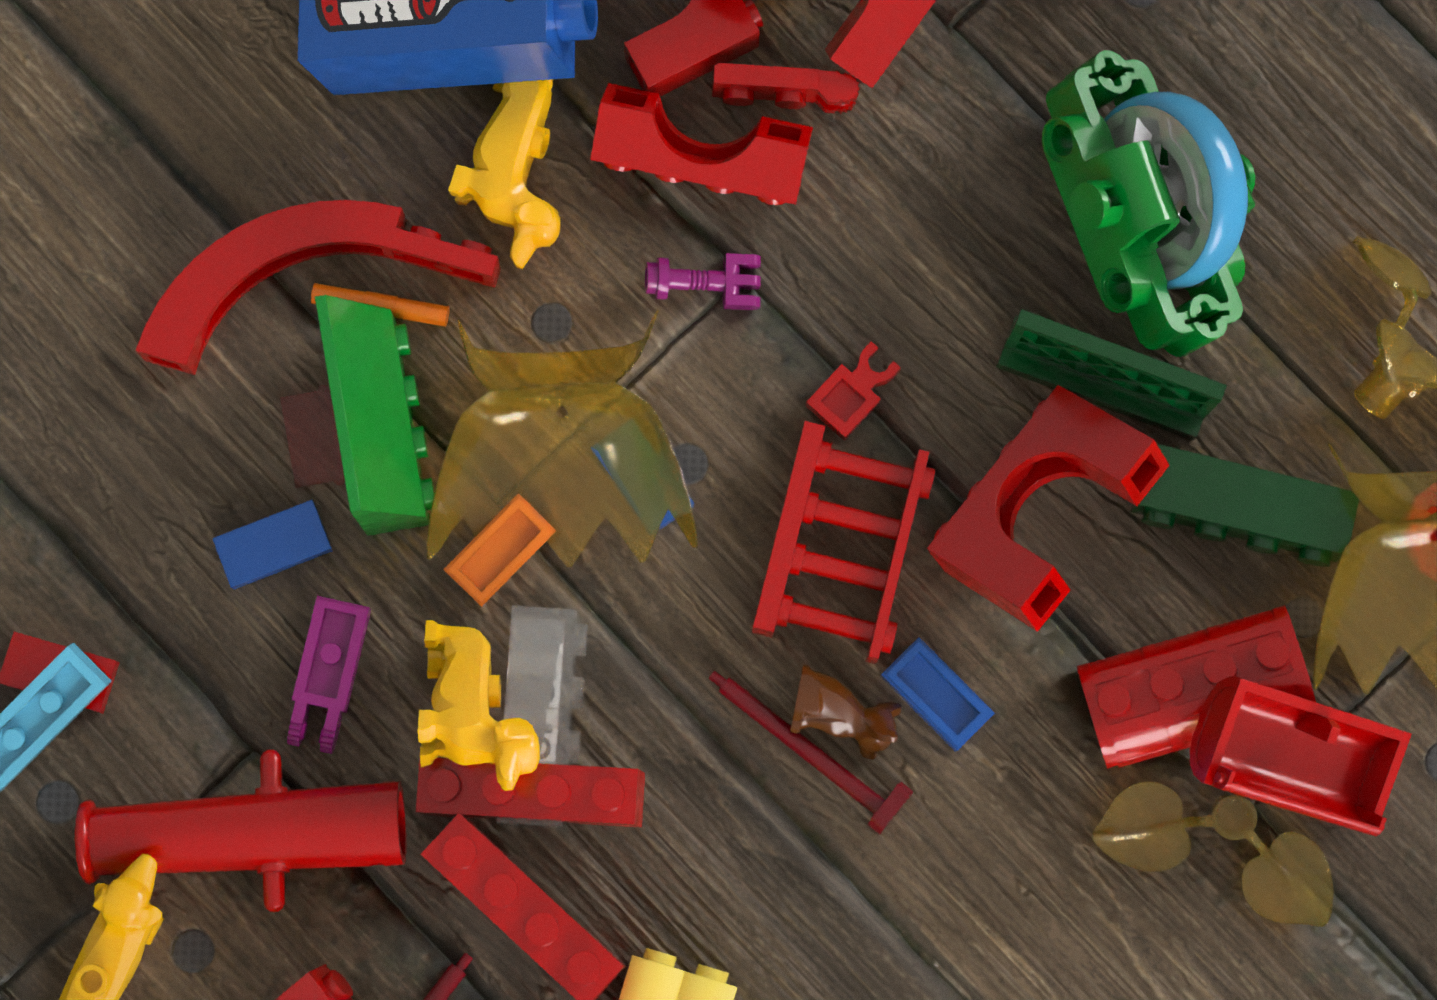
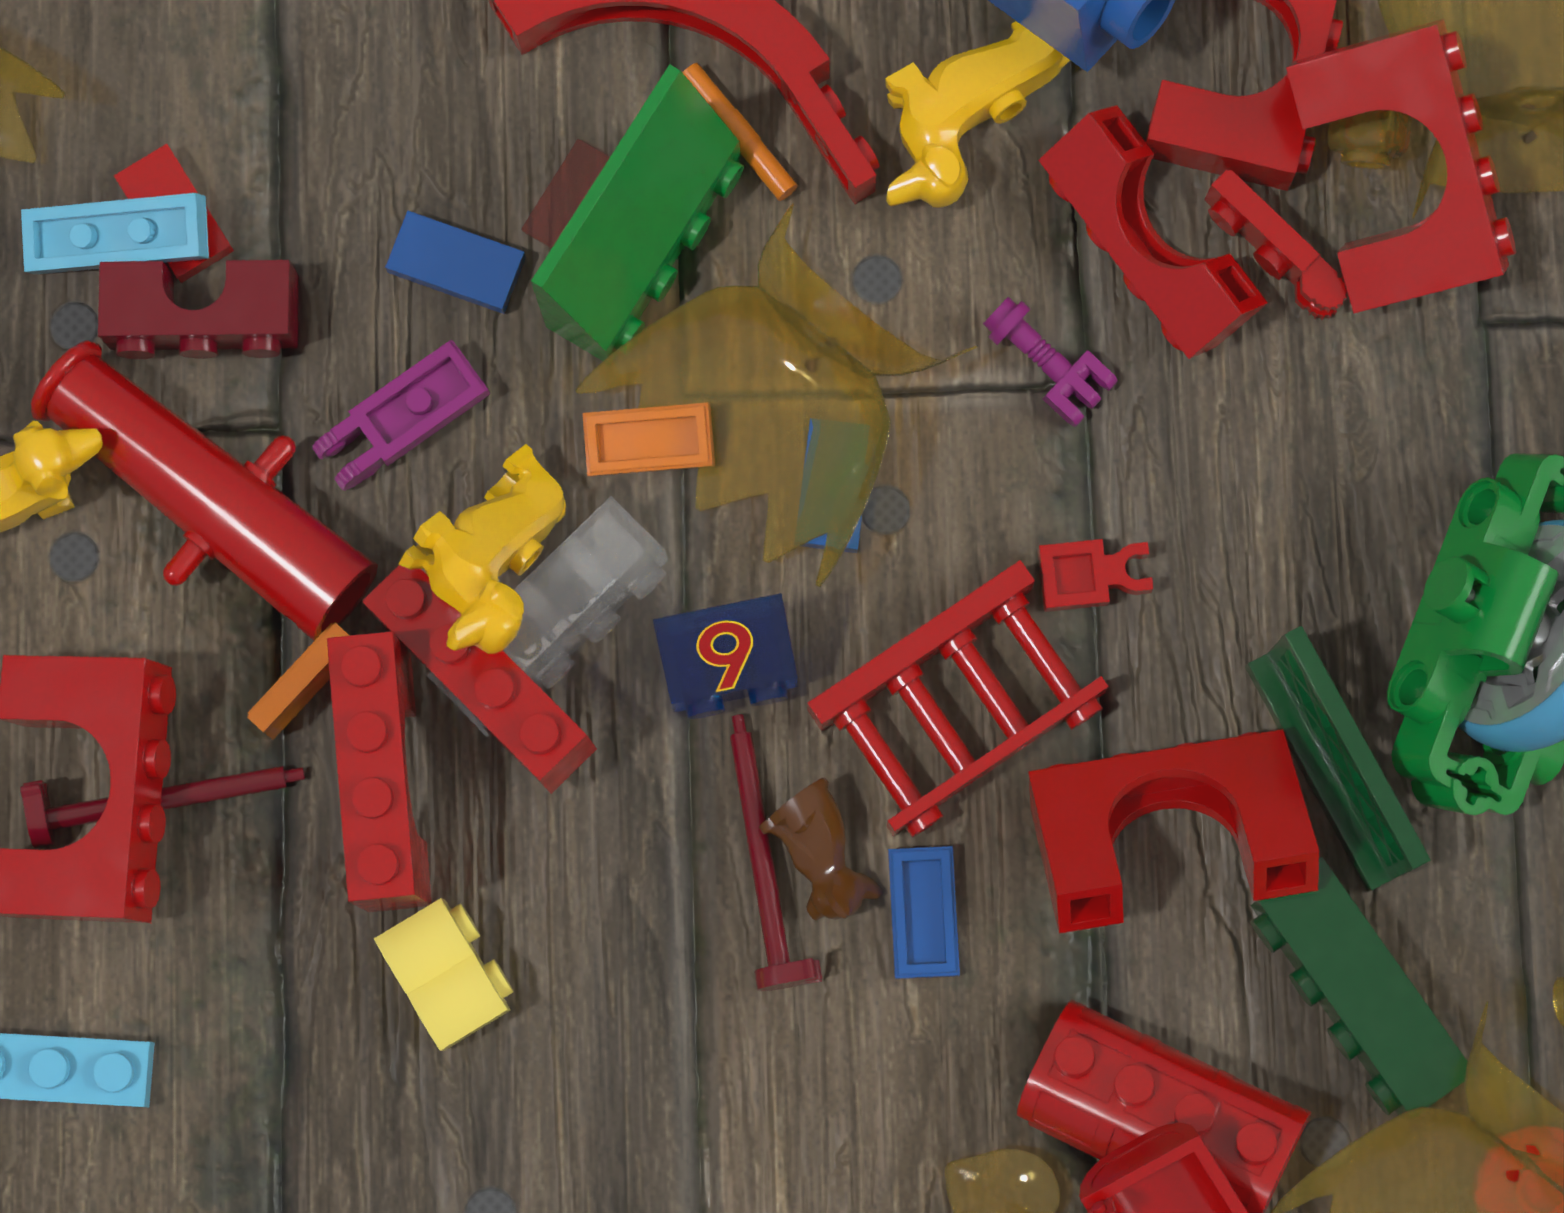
camera: 50 degrees right, 0 degrees up
(171, 692) = (251, 314): none -> dark red arch
(416, 898) = (295, 686): none -> orange tile
(676, 642) = (727, 655): none -> clear blue slope

